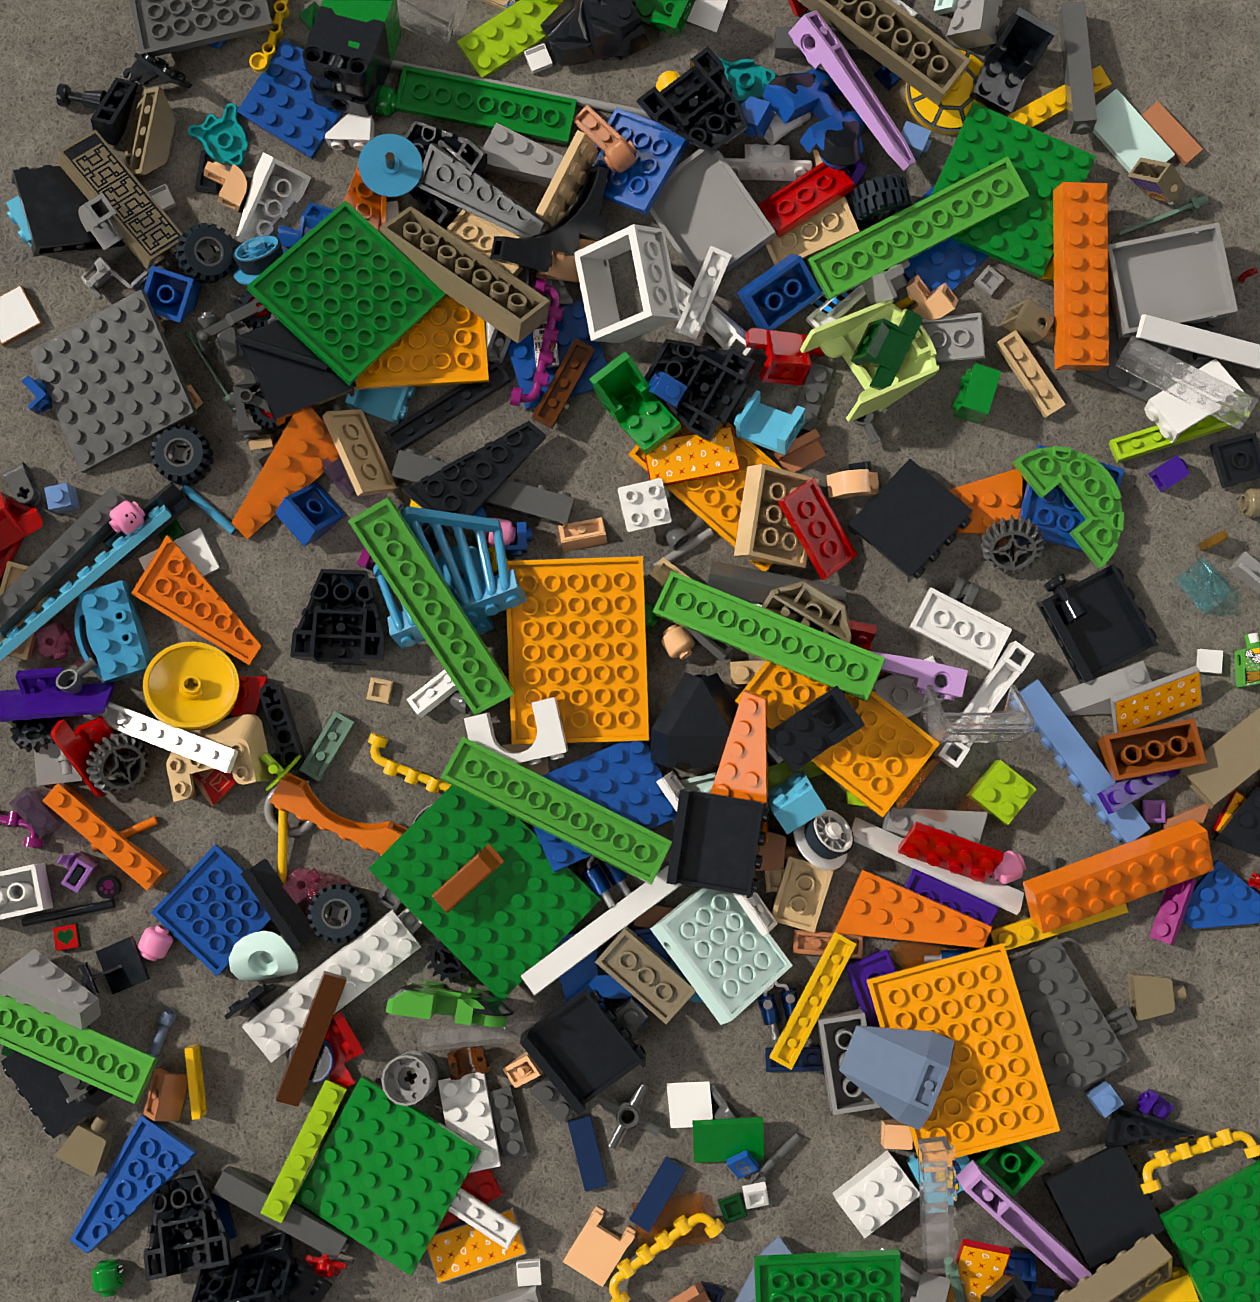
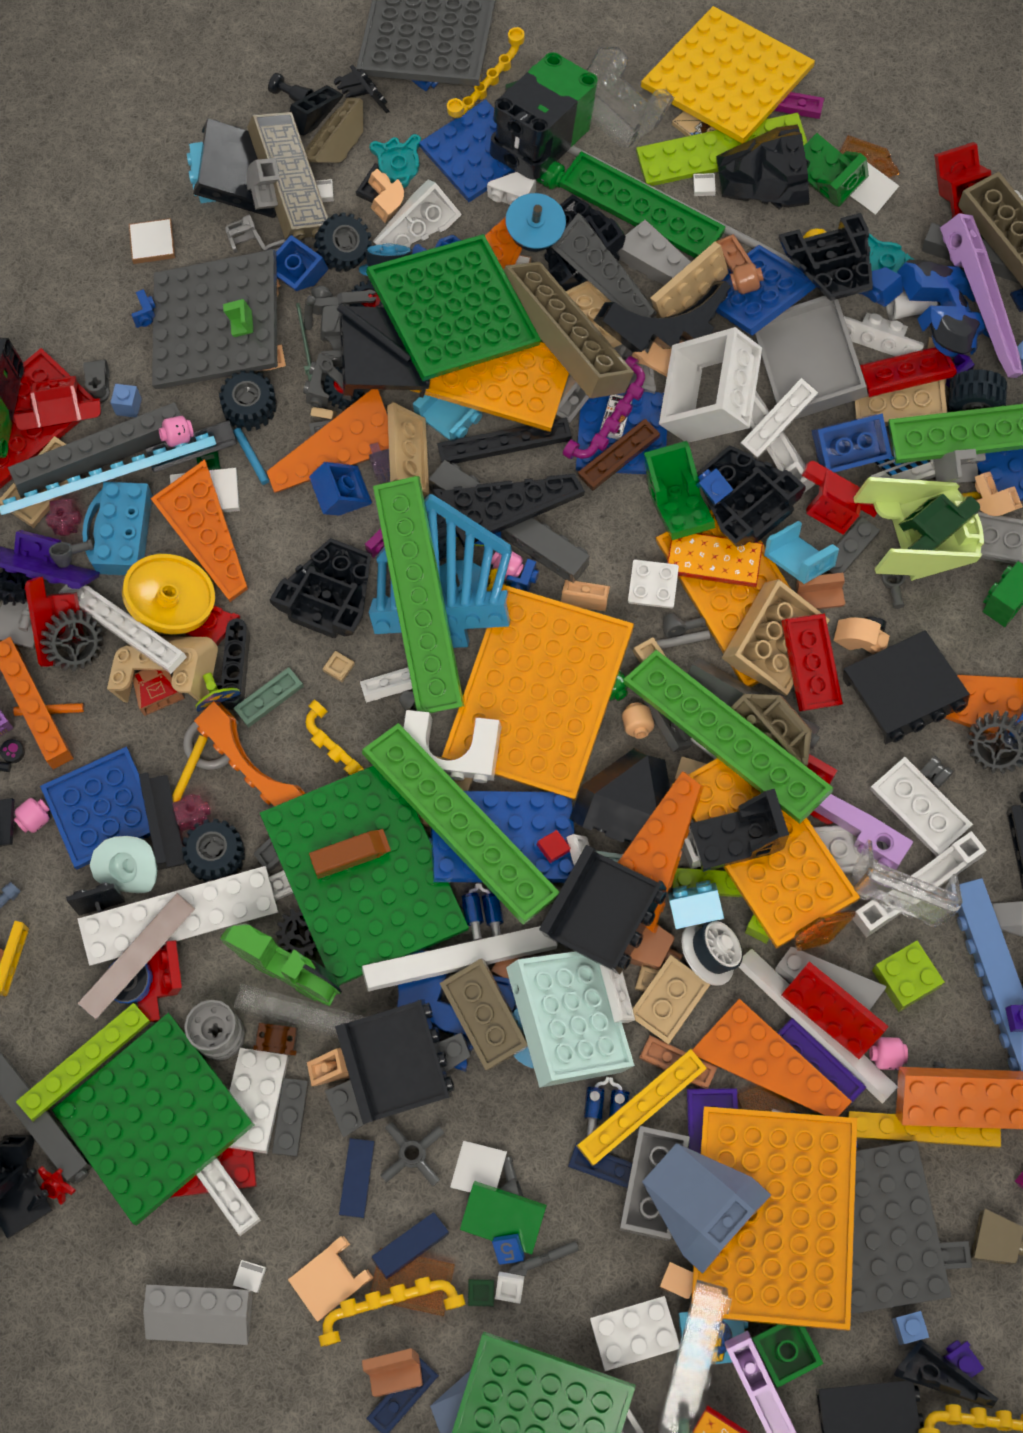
camera: 25 degrees right, 15 degrees down
(140, 377) = (240, 317): none -> bright green panel
(467, 1250) = (202, 1228): light orange tile -> none
(648, 796) = (553, 846): none -> red tile

